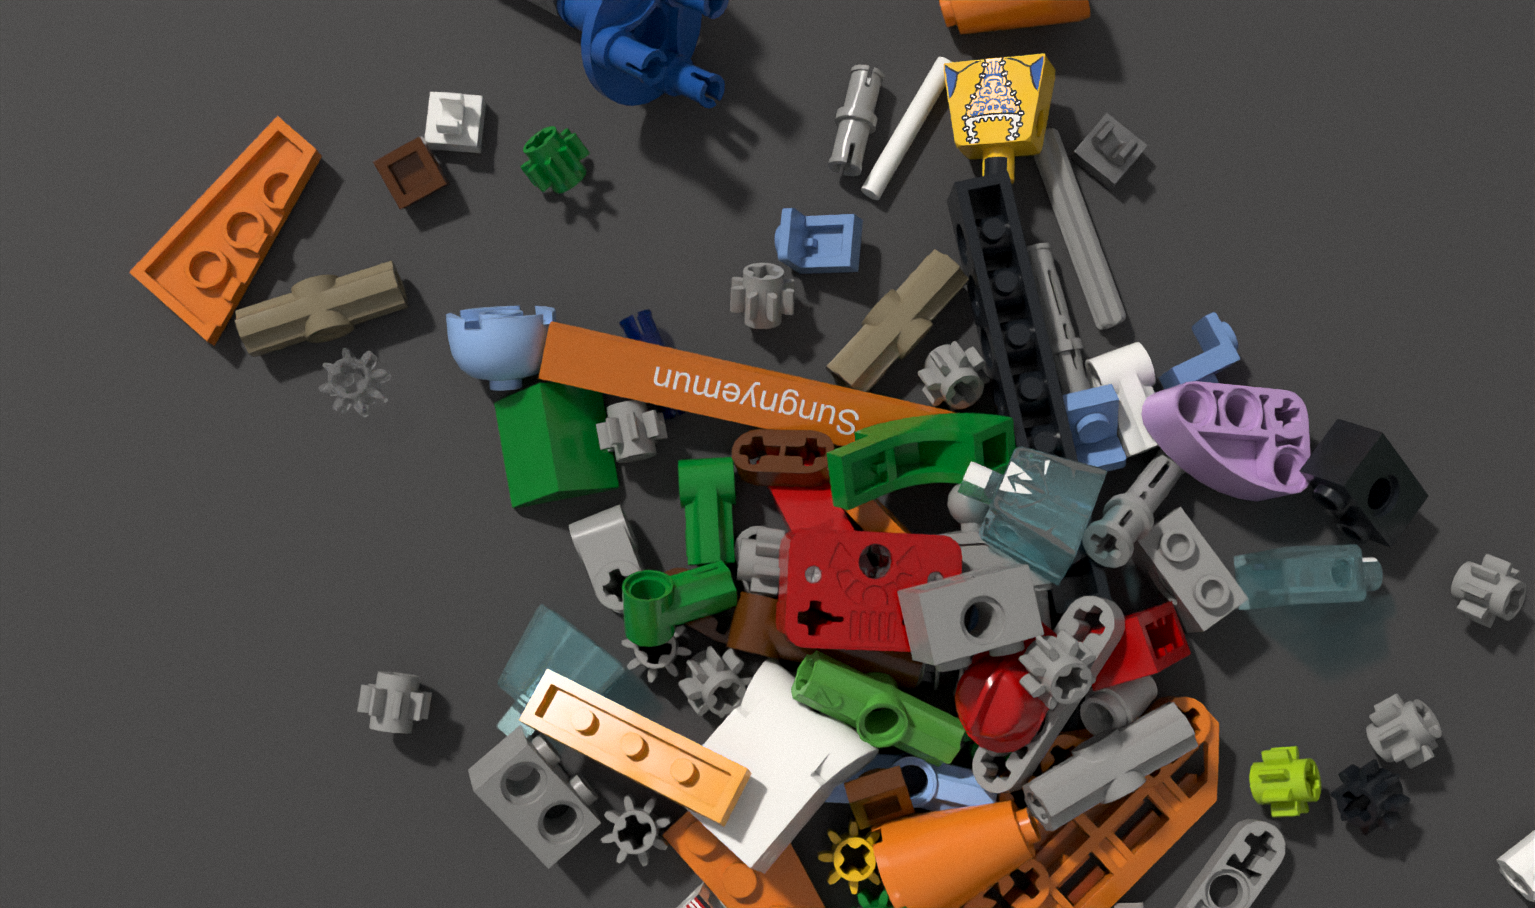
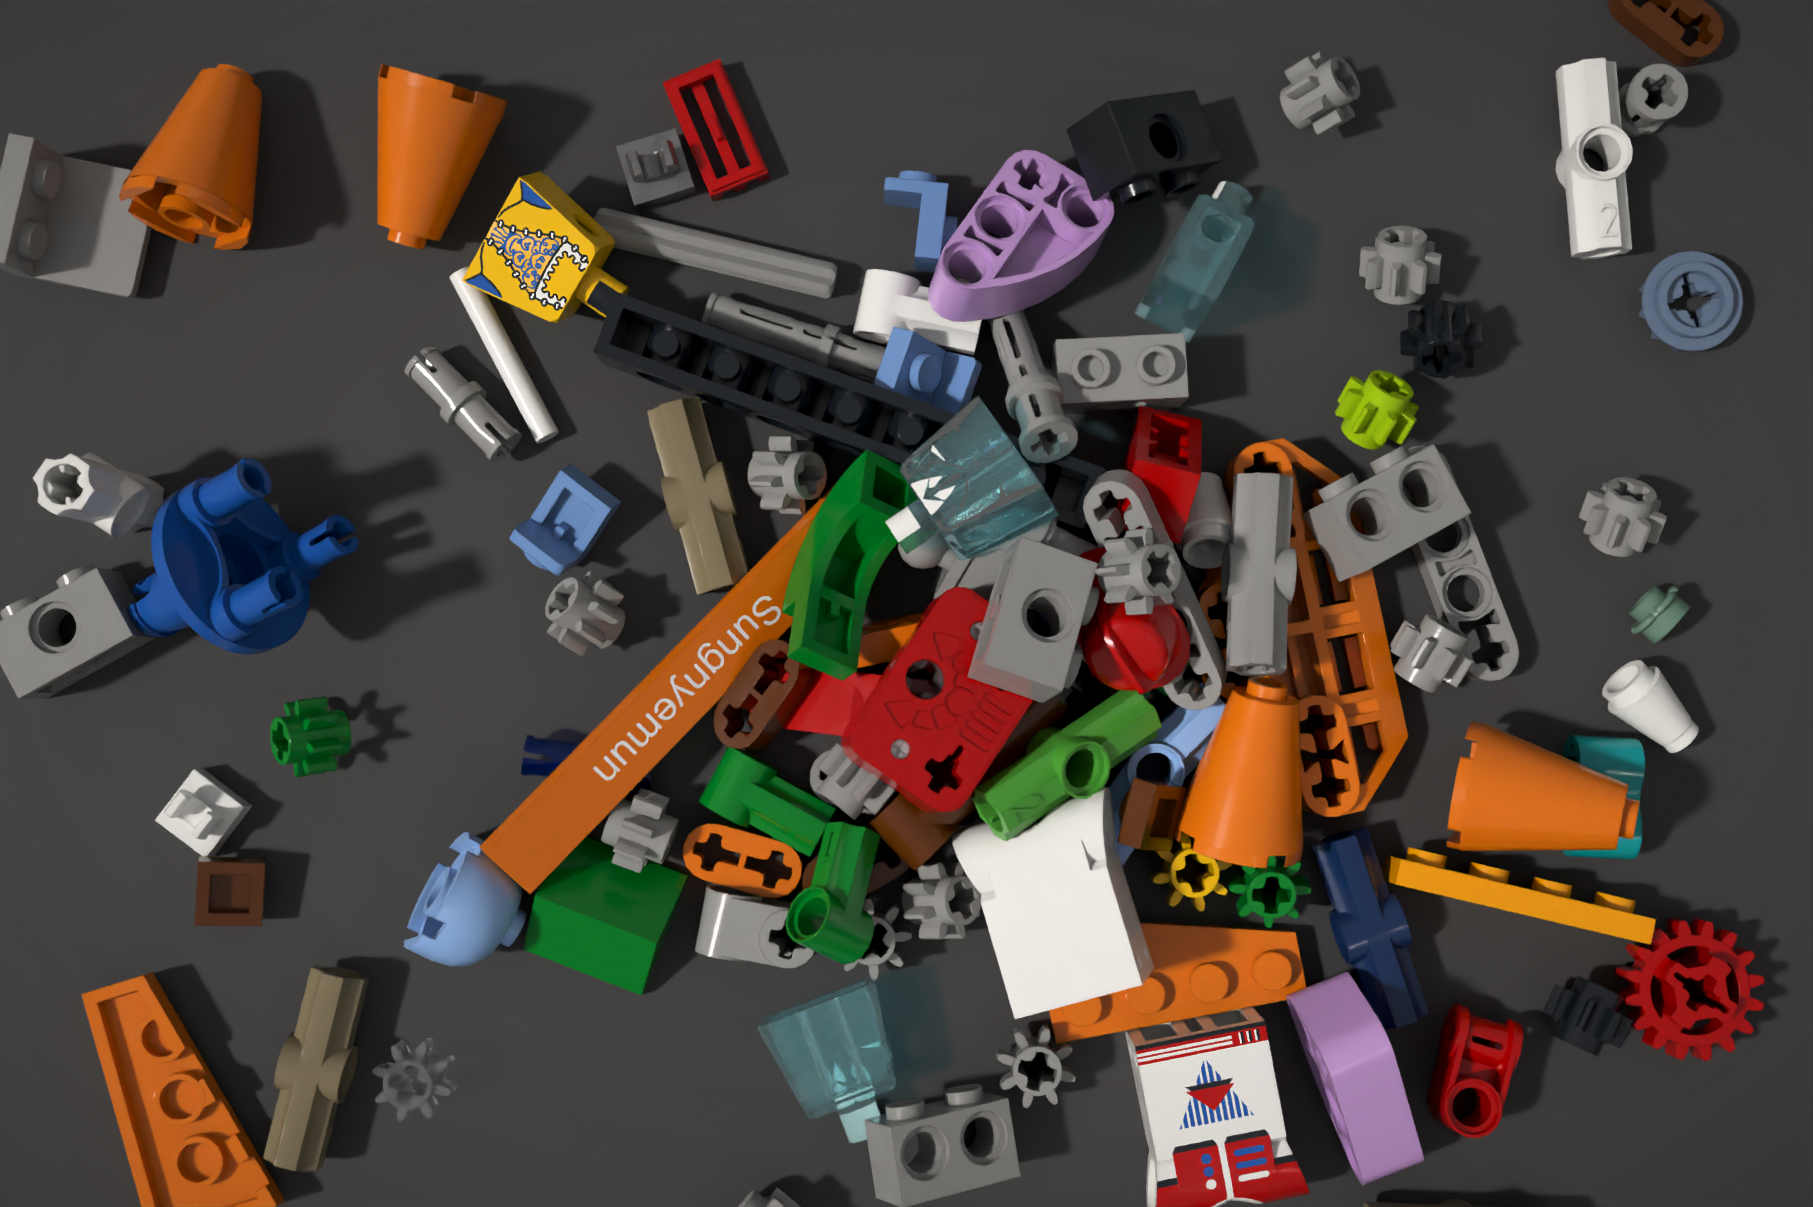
camera: 55 degrees left, 5 degrees up
(636, 747) = (957, 1023): light orange plate -> none
(642, 522) = (738, 874): none -> orange beam
(1141, 210) = (736, 177): none -> red tile
(1216, 835) = (1387, 515): none -> light grey brick

